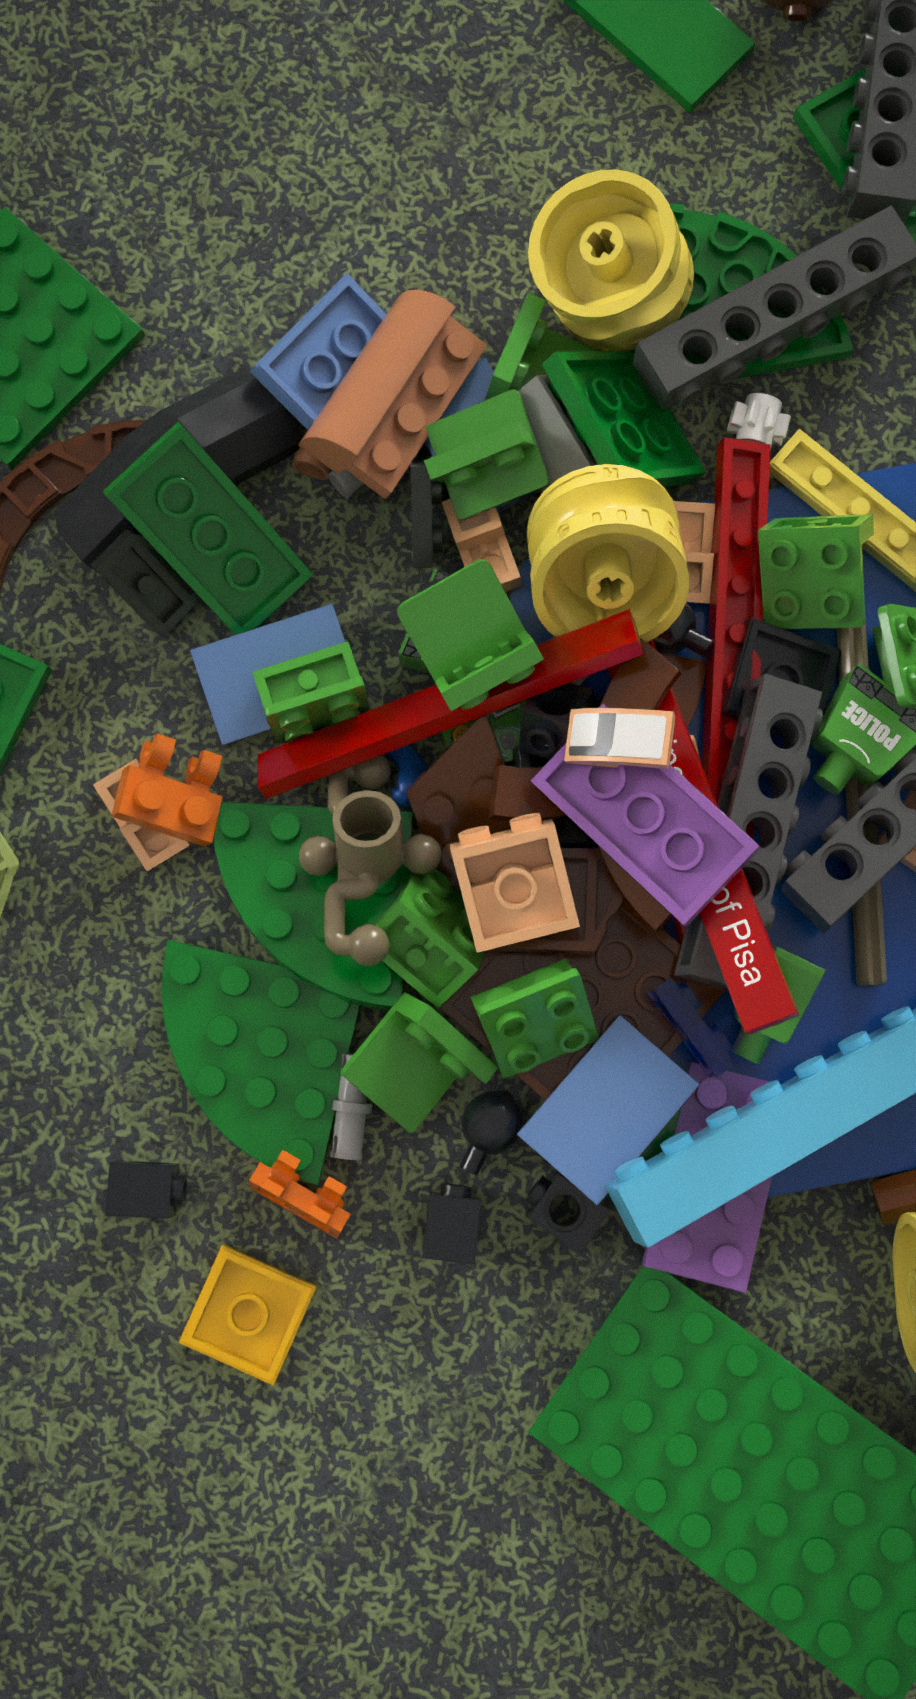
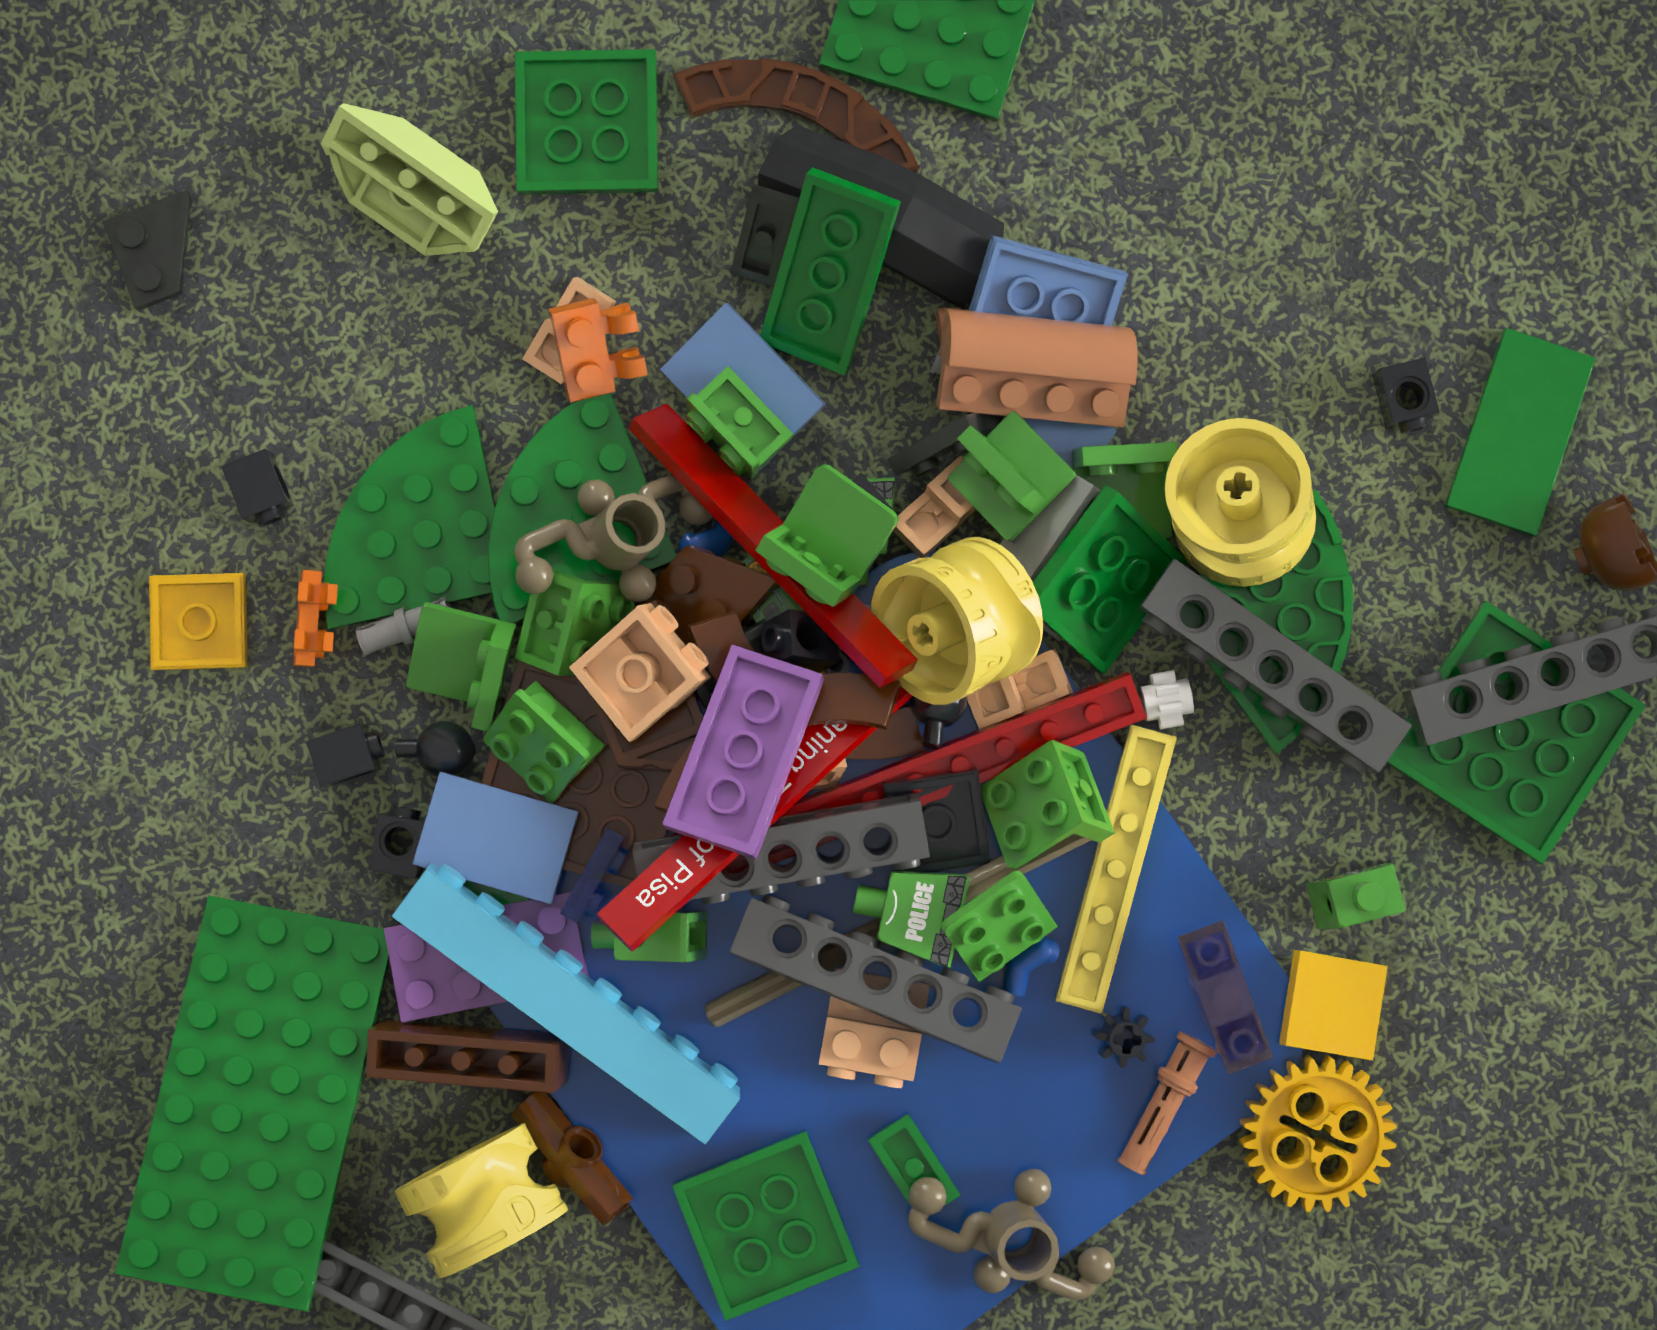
camera: 75 degrees right, 5 degrees up
(576, 74) = (1414, 376): none -> black brick
(620, 737) = (793, 701): slope -> none
(811, 1241) = (467, 1056): none -> reddish brown brick

